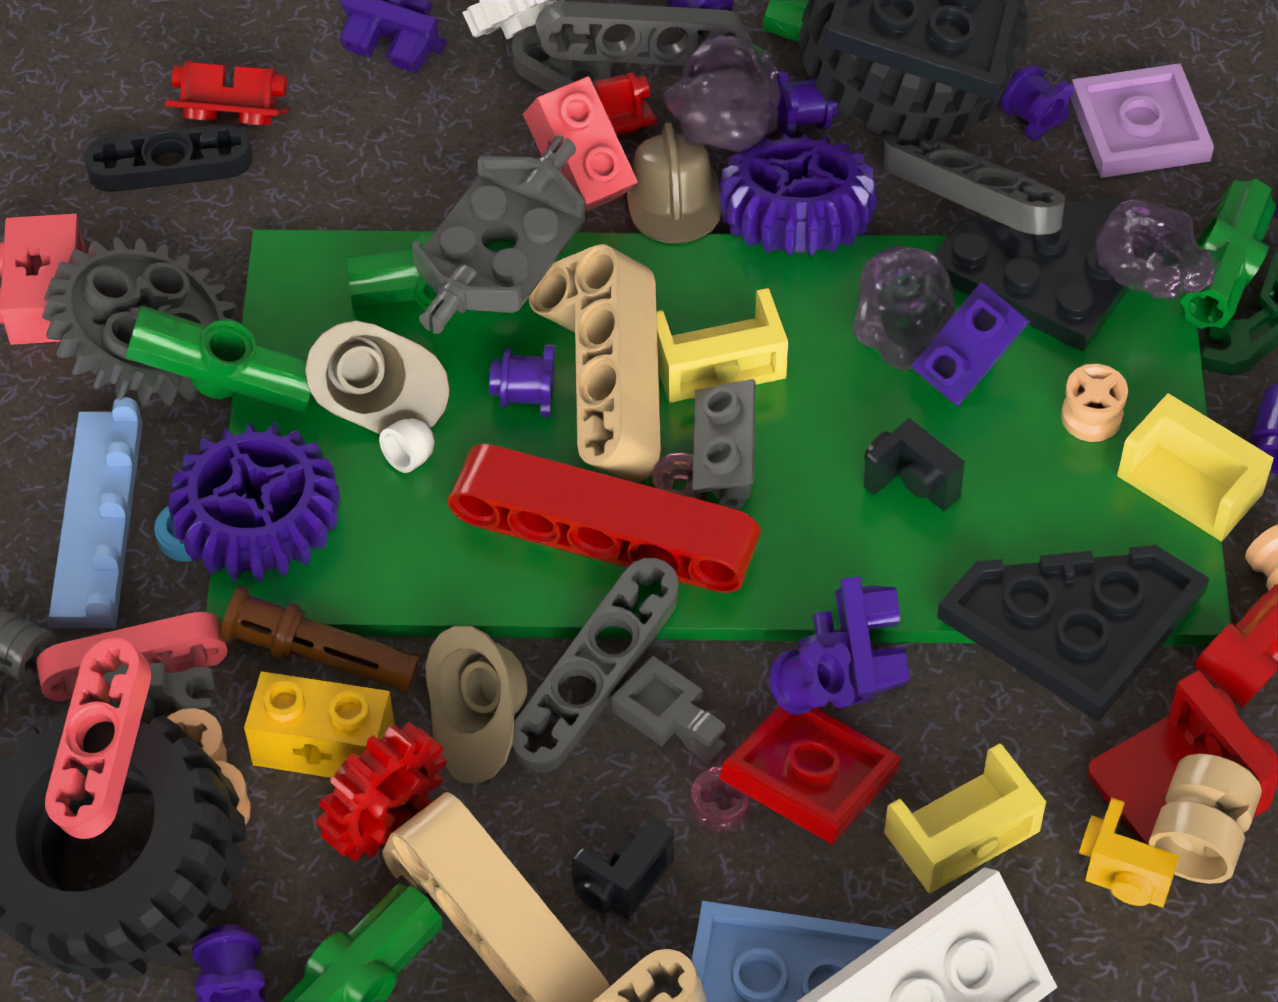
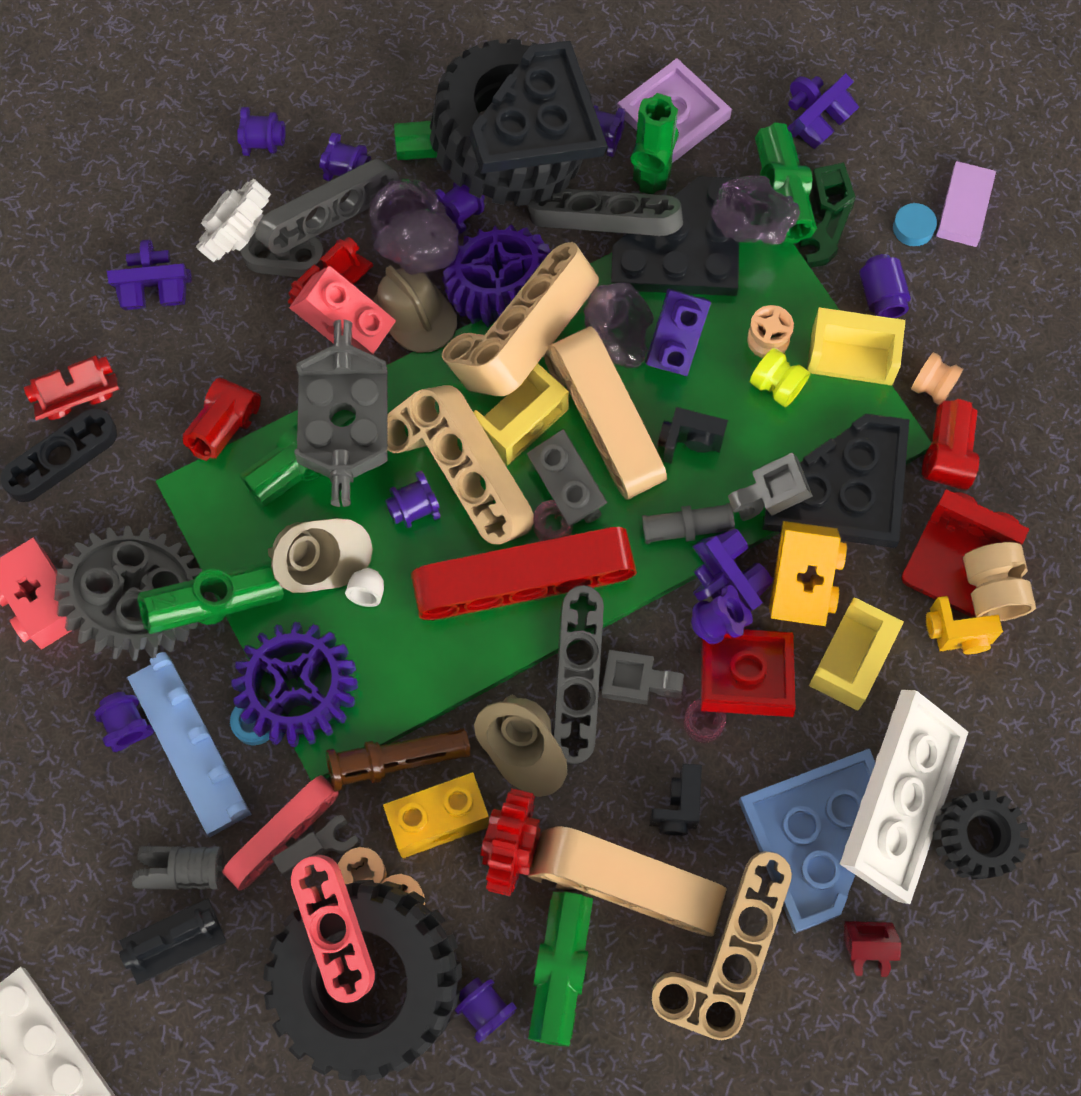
camera: 30 degrees left, 15 degrees up
(39, 452) = (122, 721): none -> dark purple brick
(379, 192) = (224, 411): none -> red piece
(734, 264) = (526, 328): none -> tan beam
(821, 388) = (607, 411): none -> tan beam
(842, 560) = (688, 523): none -> dark grey pin
(925, 705) = (798, 548): none -> yellow brick
(974, 565) = (776, 488): none -> dark grey plate
(1073, 460) = (778, 376): none -> neon yellow wheel
(1076, 124) = (654, 143): none -> green piece

